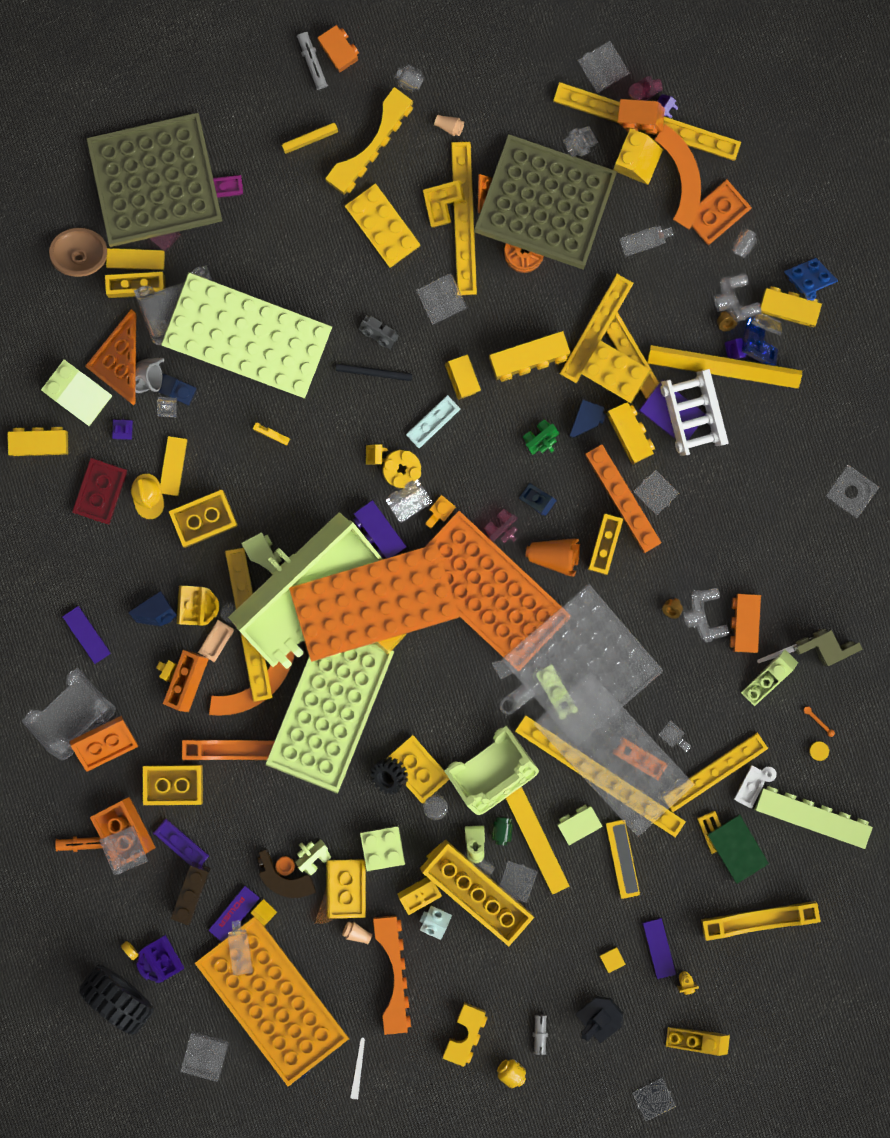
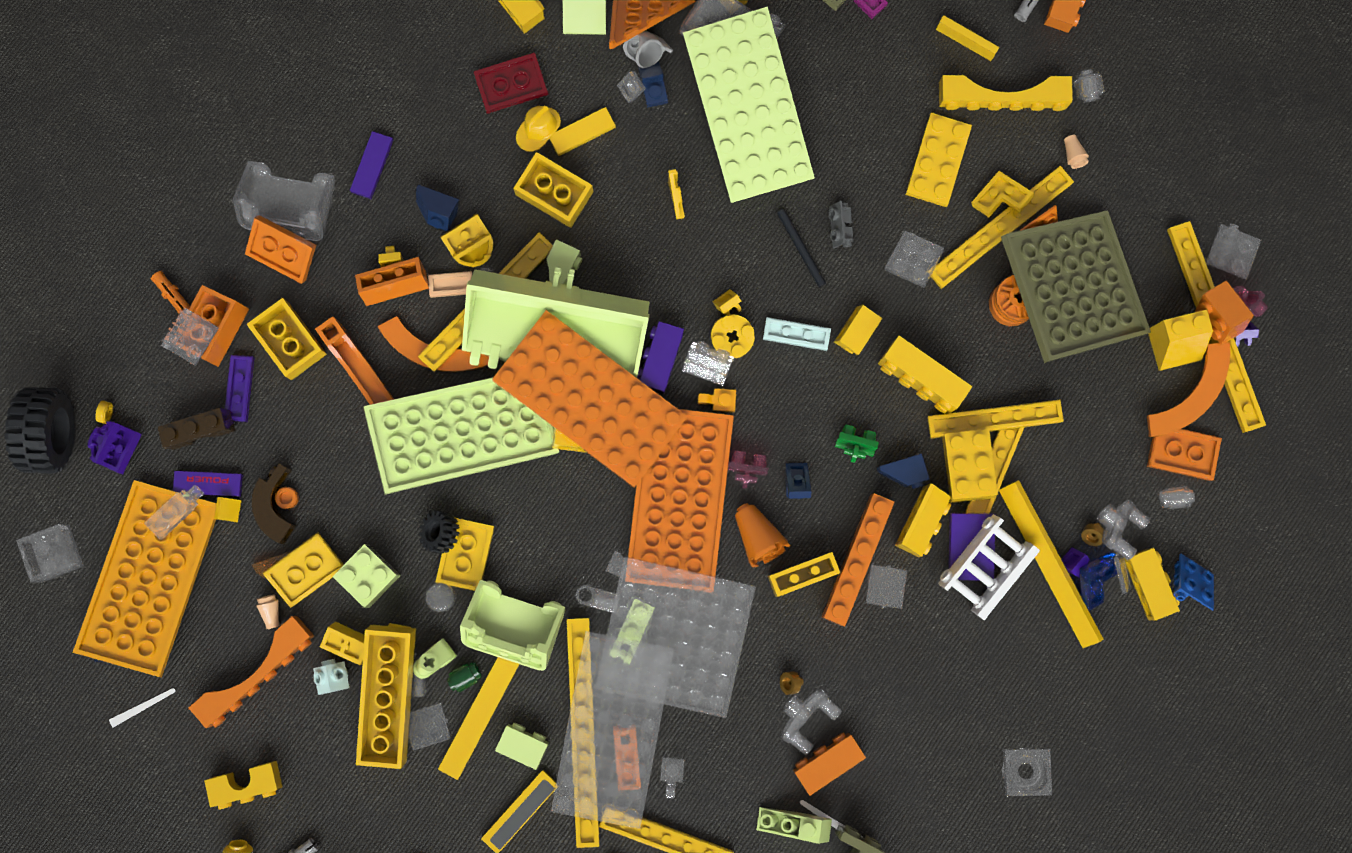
camera: 50 degrees right, 5 degrees down
(122, 429) = (581, 64): dark purple tile -> none
(309, 854) = (313, 512): yellowish green hips -> none
(580, 141) = (1152, 278): clear brick -> none
(644, 240) = (1108, 404): clear hinge -> none

